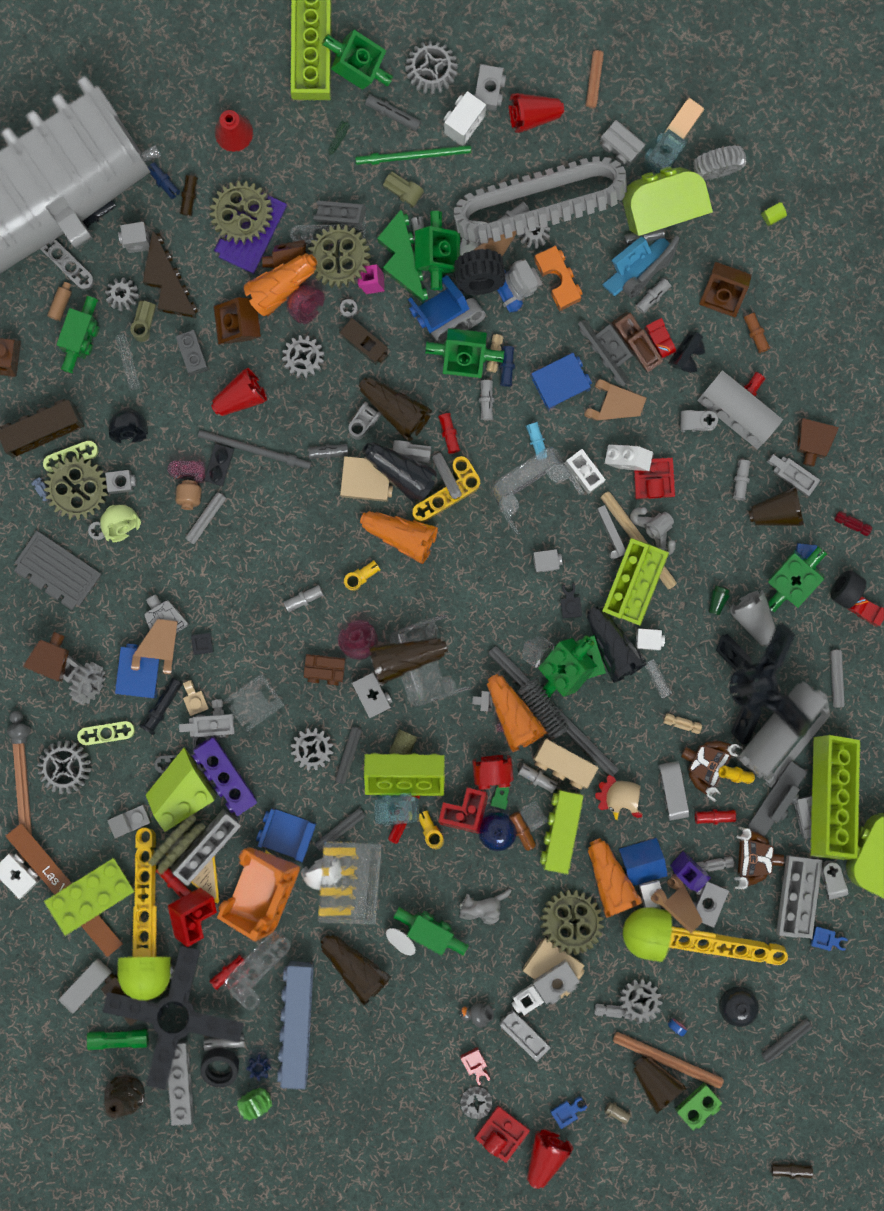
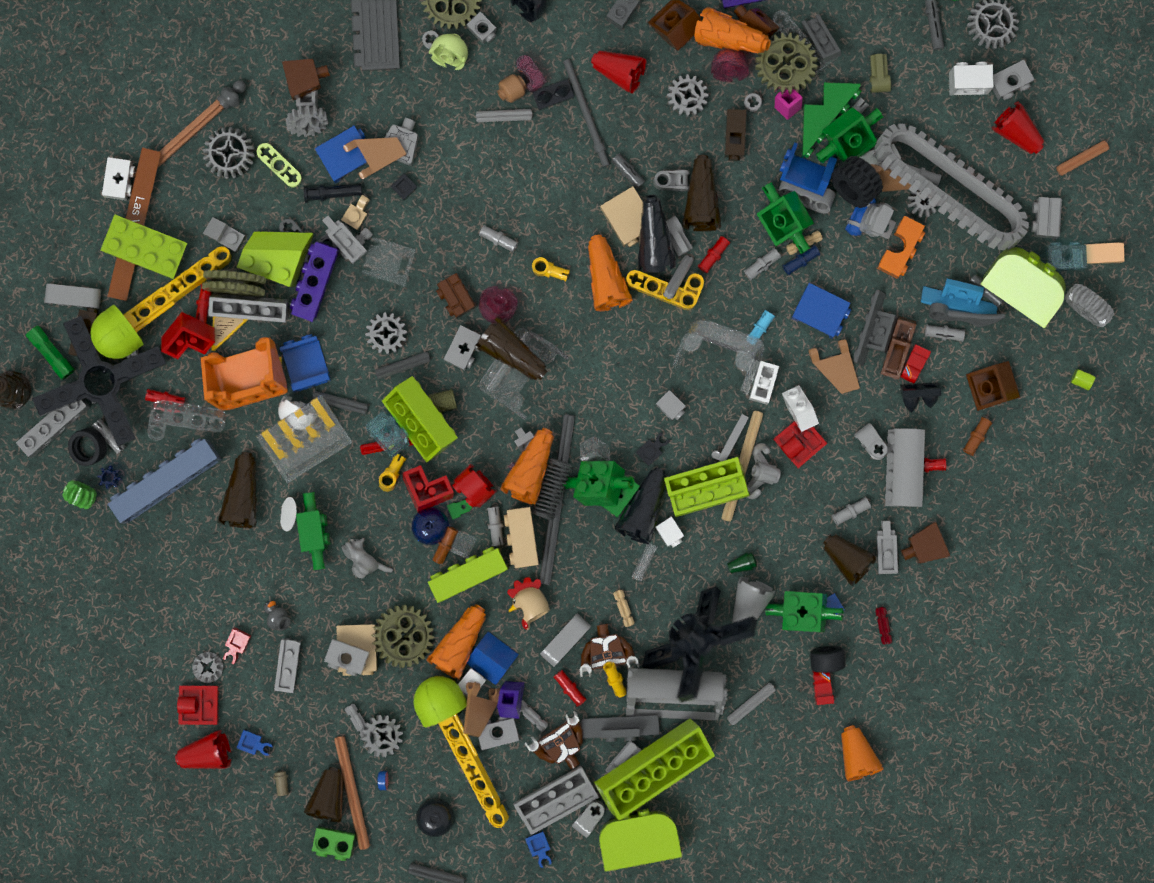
camera: 60 degrees right, 0 degrees up
(375, 158) = (887, 34): green bar -> none
(534, 996) = (323, 647): white window -> none

